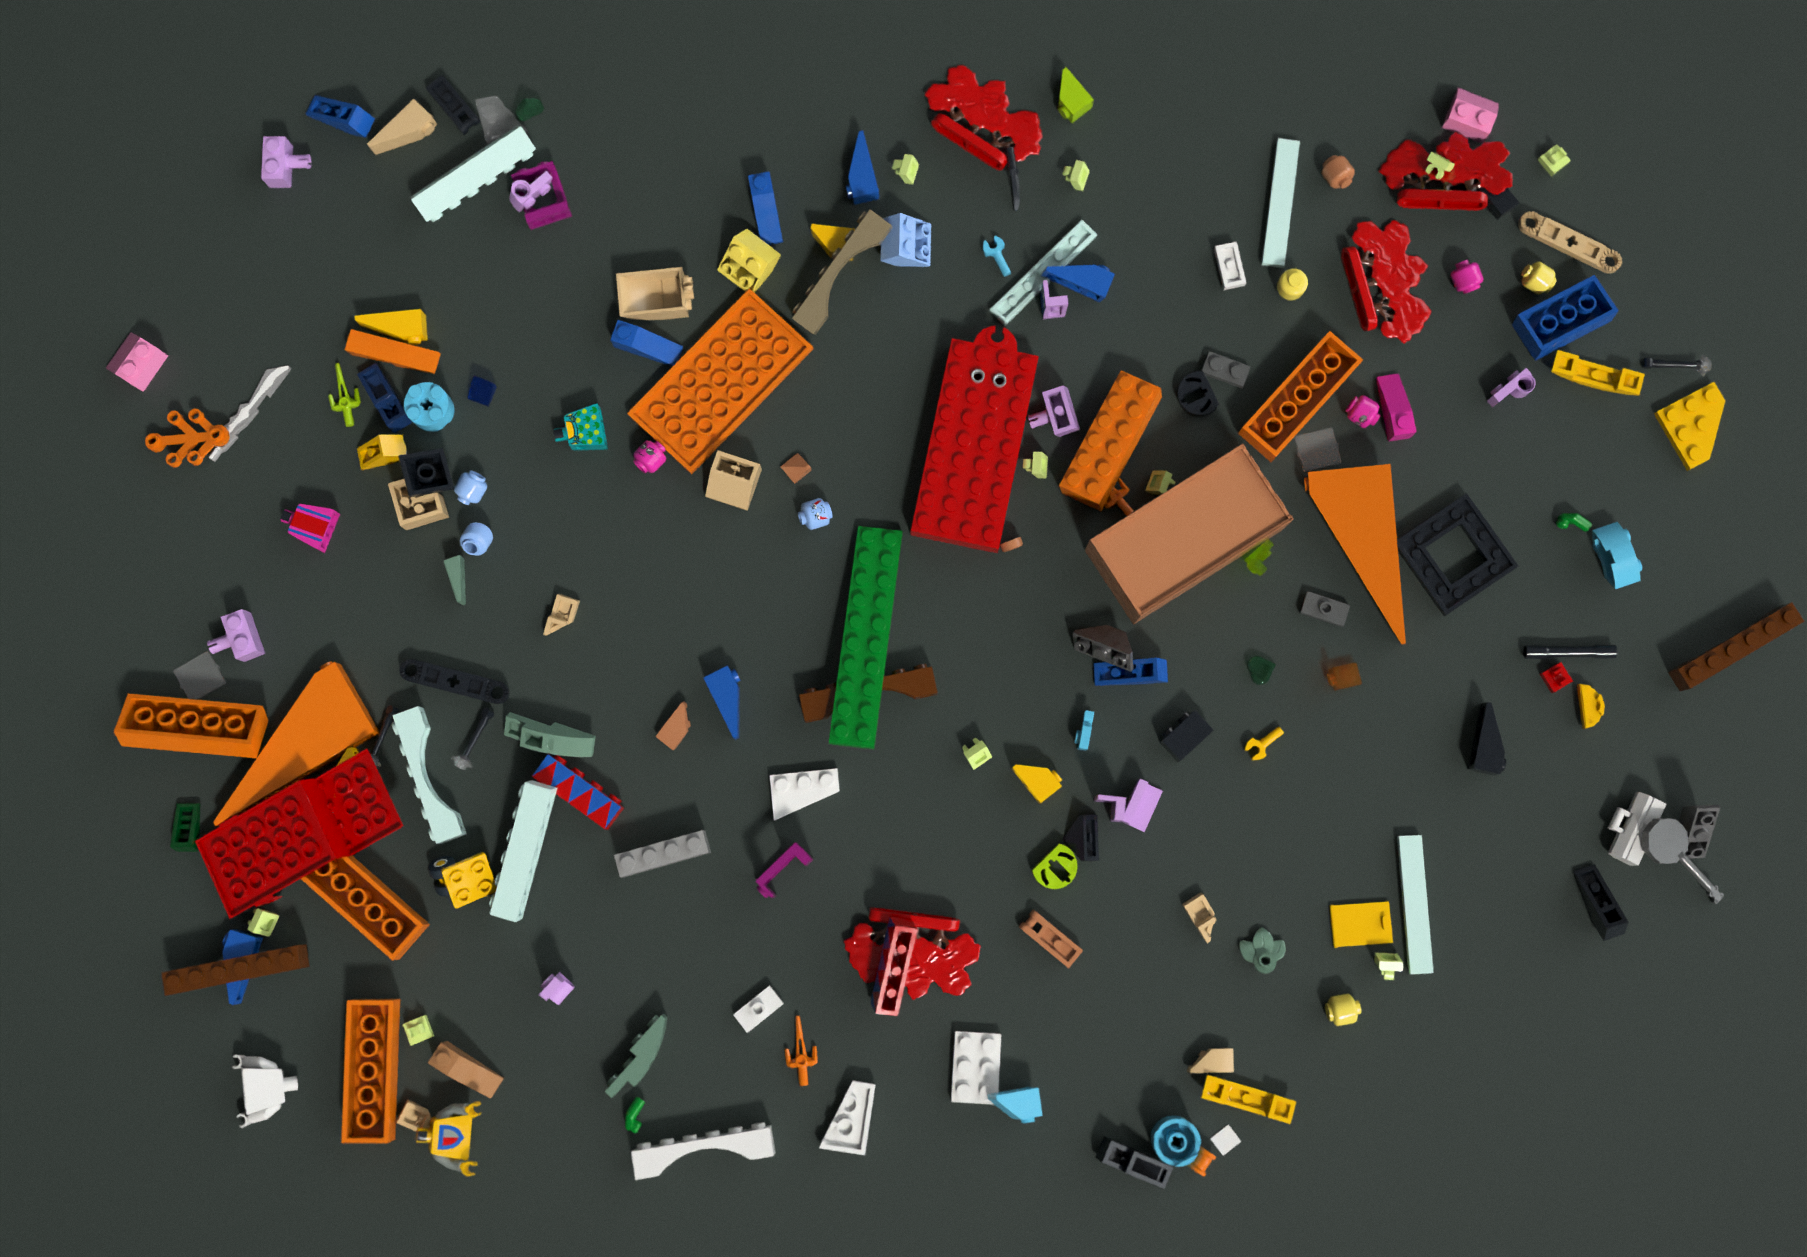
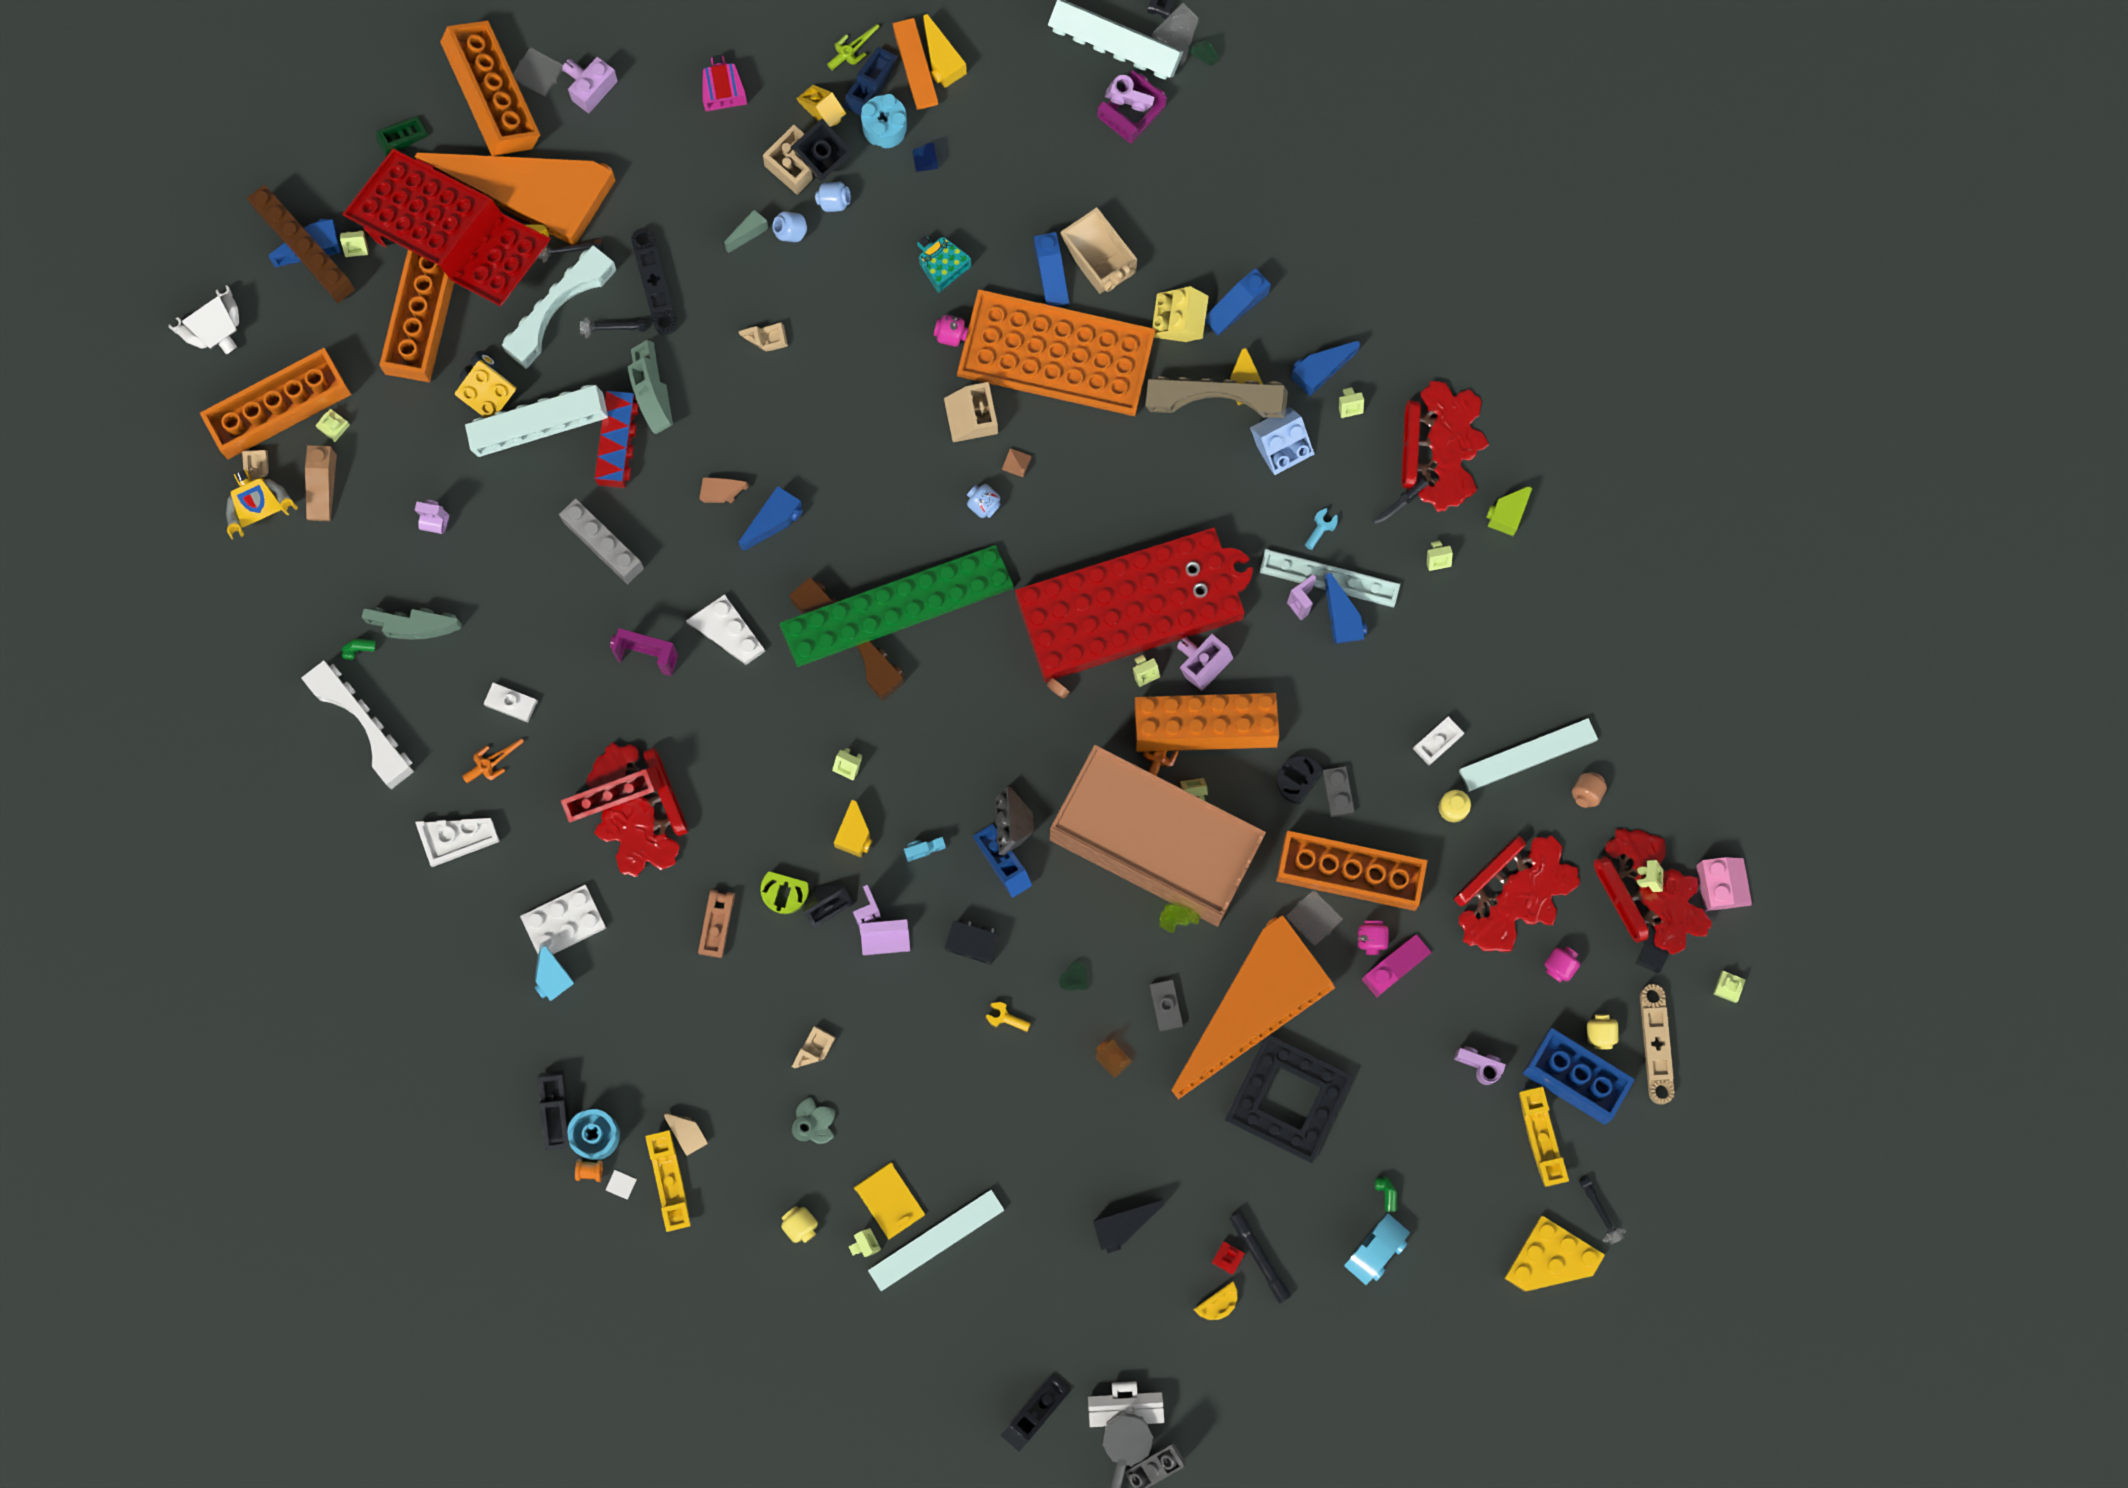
camera: 55 degrees right, 5 degrees down
(1736, 647) = (1357, 1412): reddish brown arch -> none

